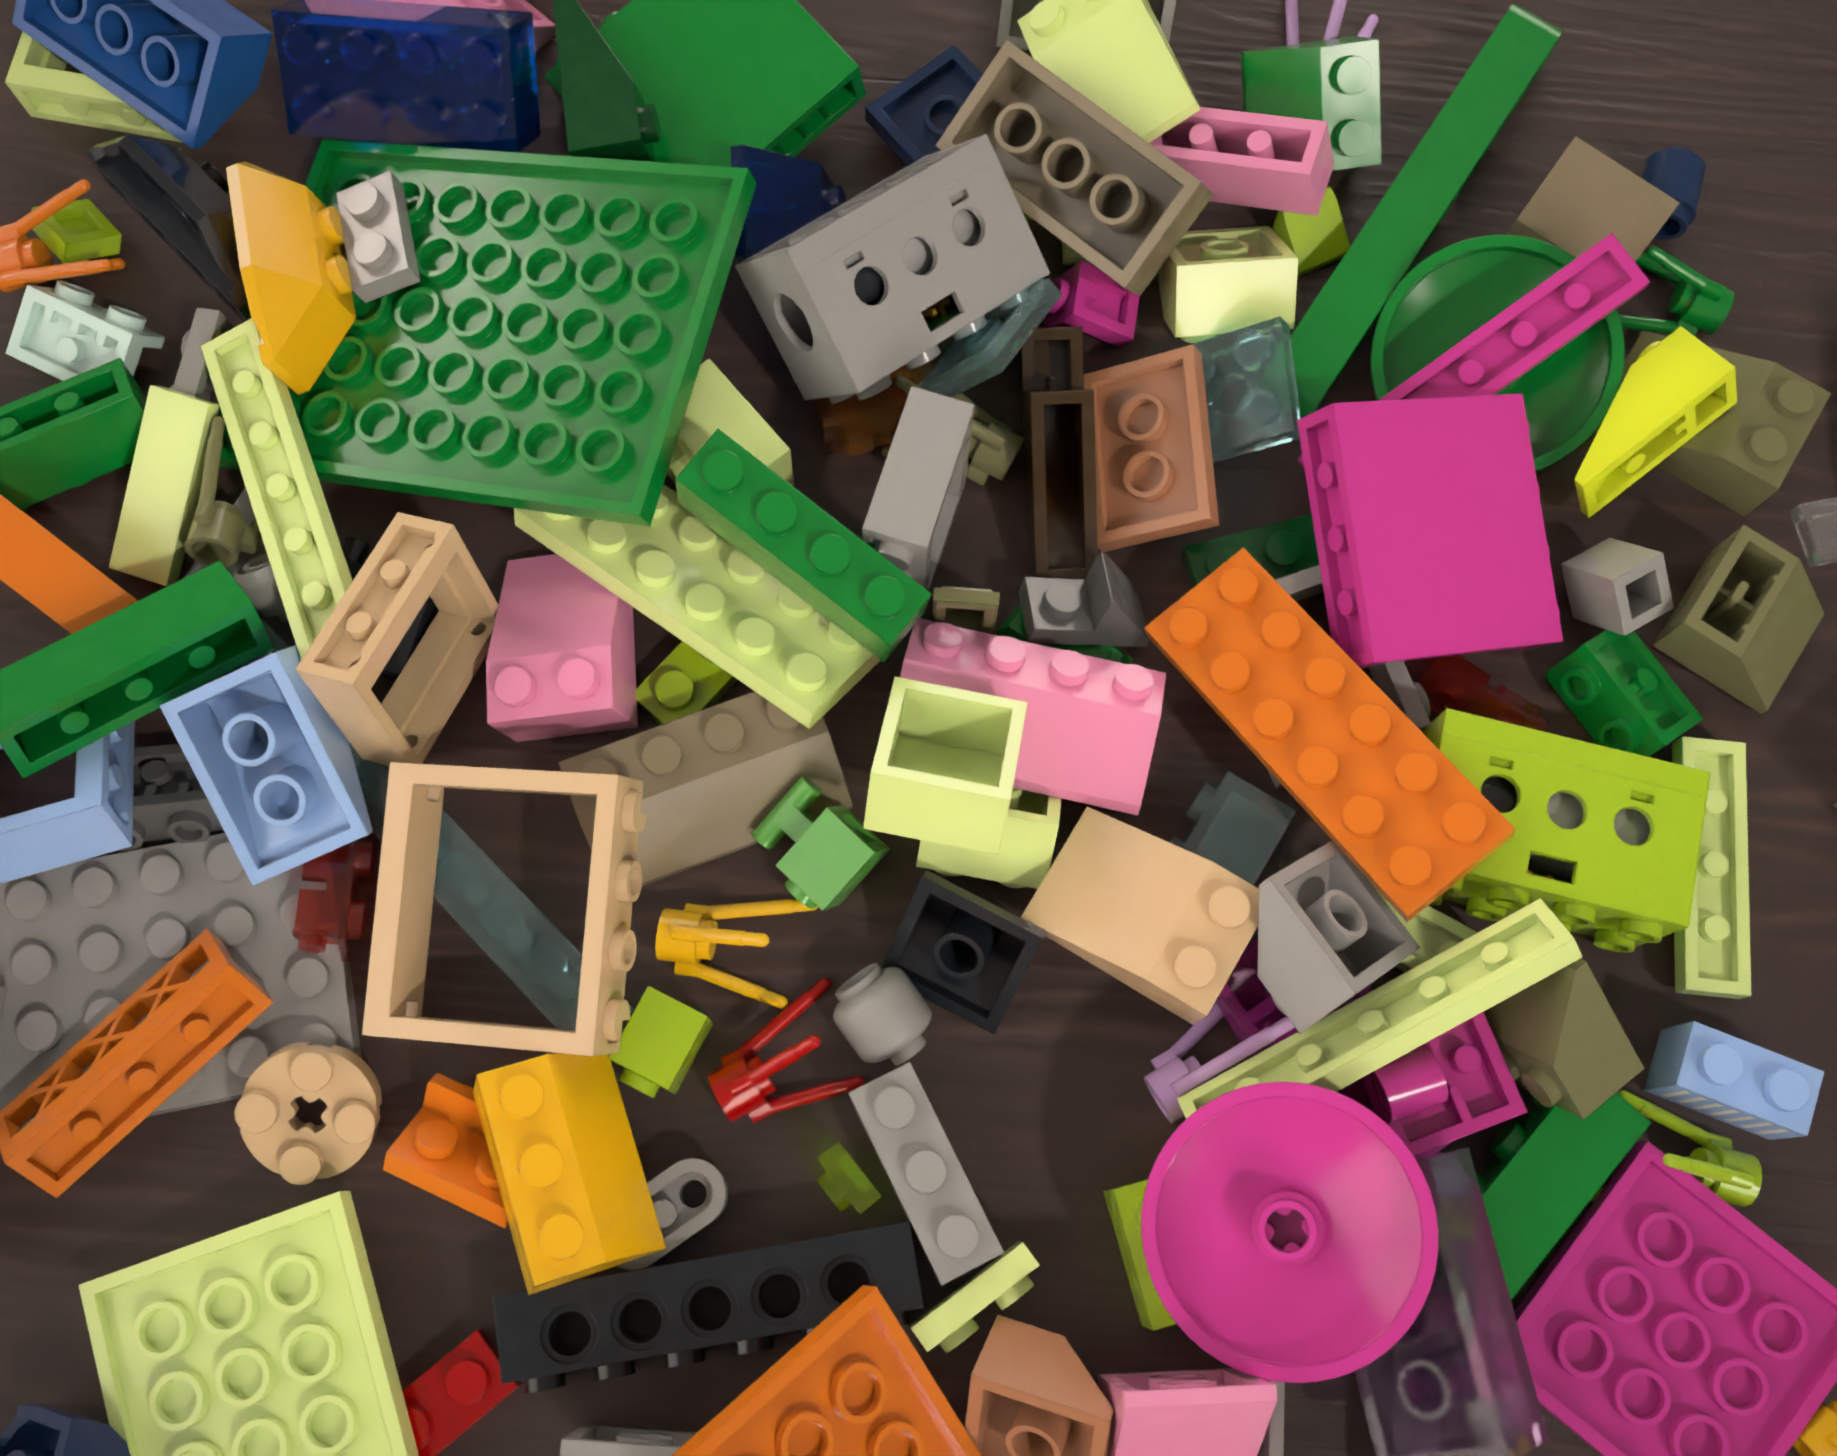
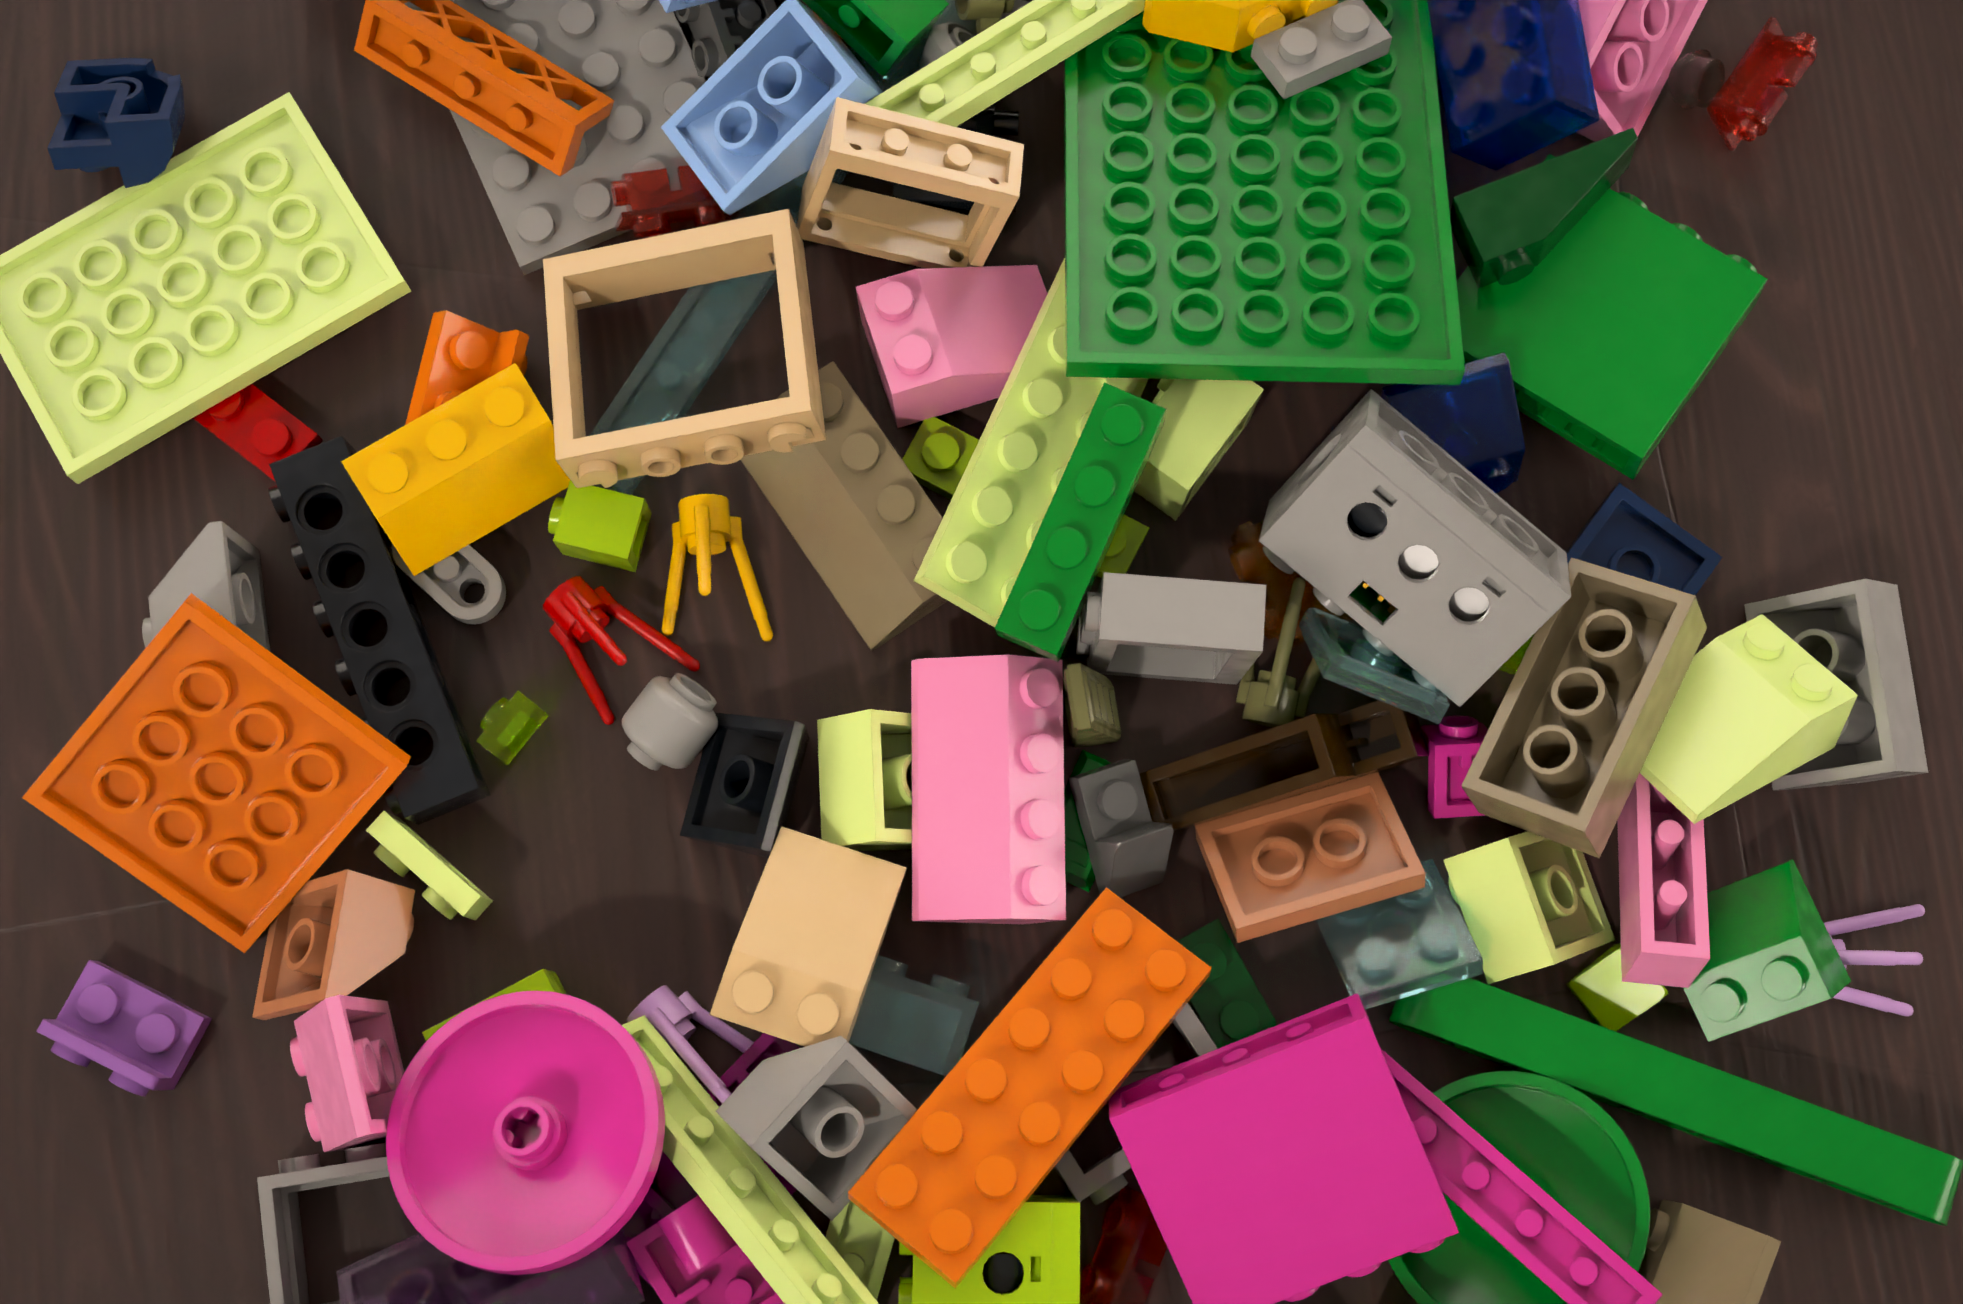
camera: 75 degrees right, 5 degrees up
(302, 1149) = (443, 229): tan plate -> none
(828, 851) = (815, 635): bright green brick -> none
(925, 1173) = (528, 795): light grey brick -> none
(945, 765) = (897, 712): yellowish green piece -> none

